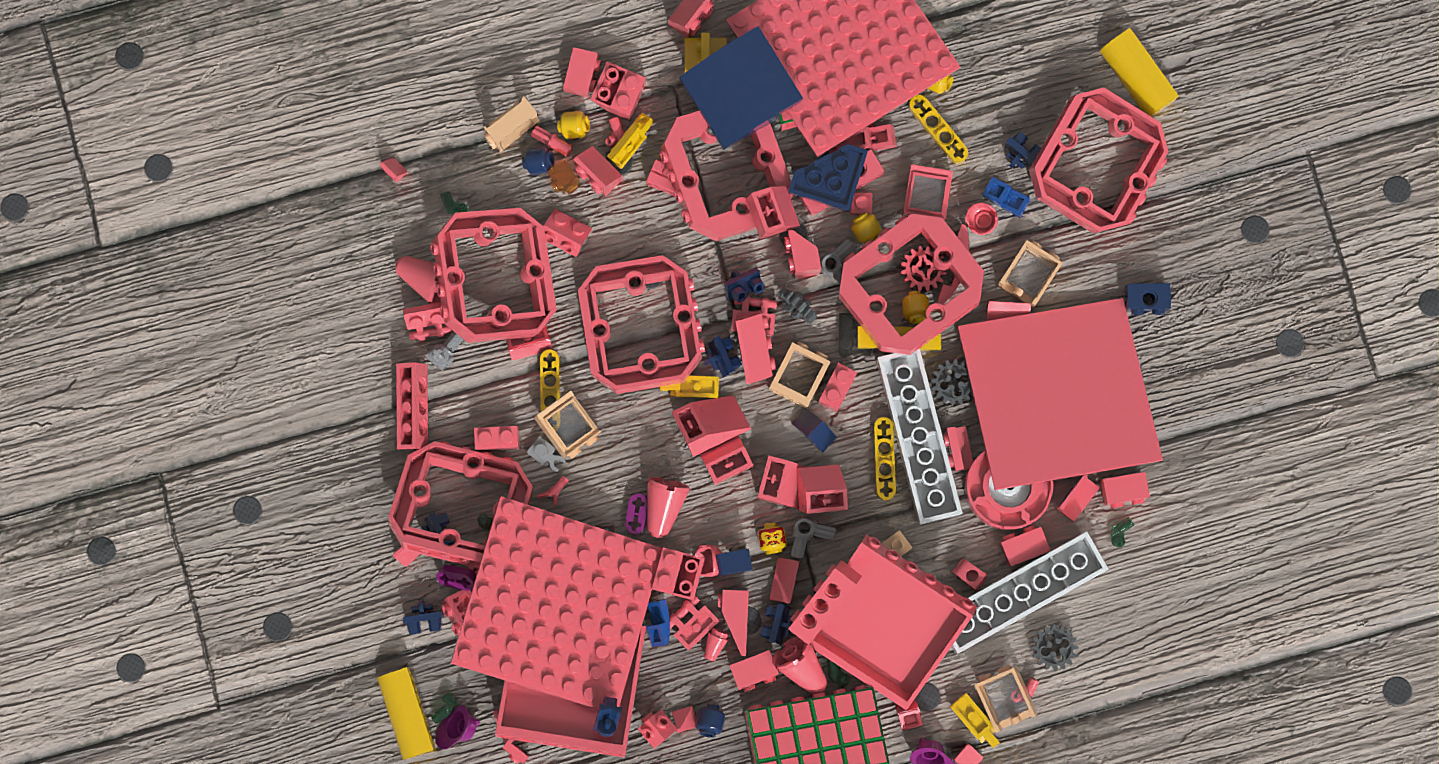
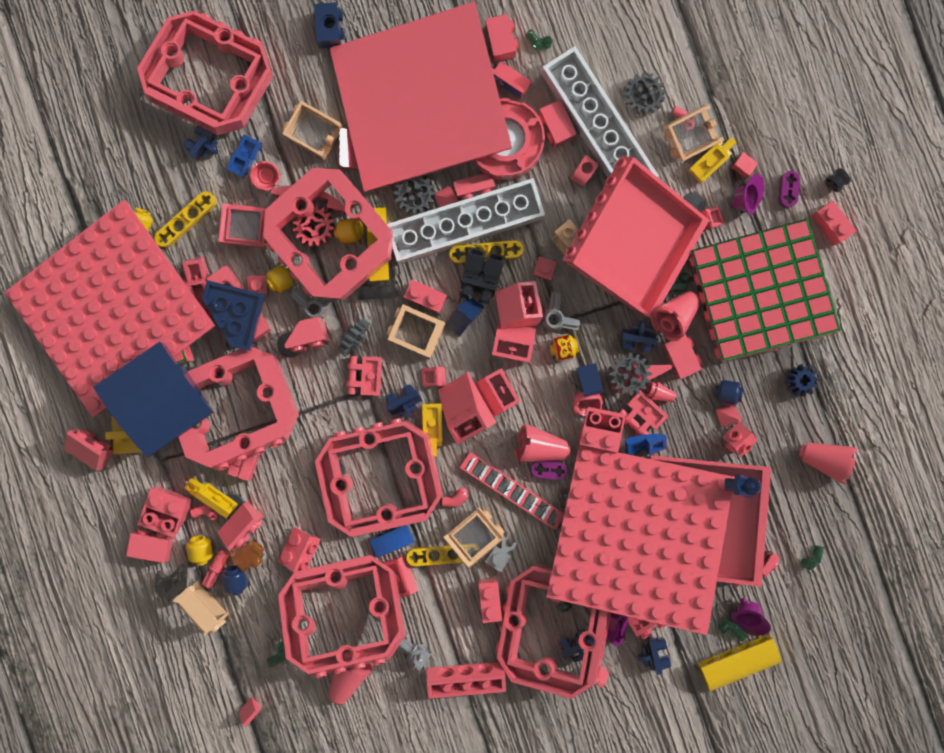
camera: 90 degrees left, 5 degrees up
(422, 317) = (385, 678): coral plate -> none
(539, 95) = (171, 585): none -> clear smoke bracket
(555, 490) = (533, 544): coral bar -> none
(569, 334) = (391, 541): none -> blue slope
(609, 409) = (457, 500): none -> coral arm
(616, 470) = (512, 490): none -> tile
(742, 284) = (336, 387): dark blue hips -> none
(748, 393) = (433, 376): none -> coral slope
(750, 602) = (633, 383): none -> dark grey gear
(755, 346) = (393, 372): coral slope -> none
(772, 211) = (268, 364): coral slope -> none
(784, 580) = (600, 334): coral slope -> none
(845, 579) = (624, 294): coral brick -> none
(859, 451) = (481, 274): none -> black hips
(862, 522) = (544, 268): none -> coral plate
(948, 417) = (445, 197): none -> coral slope
(1139, 73) = (123, 42): yellow brick -> none

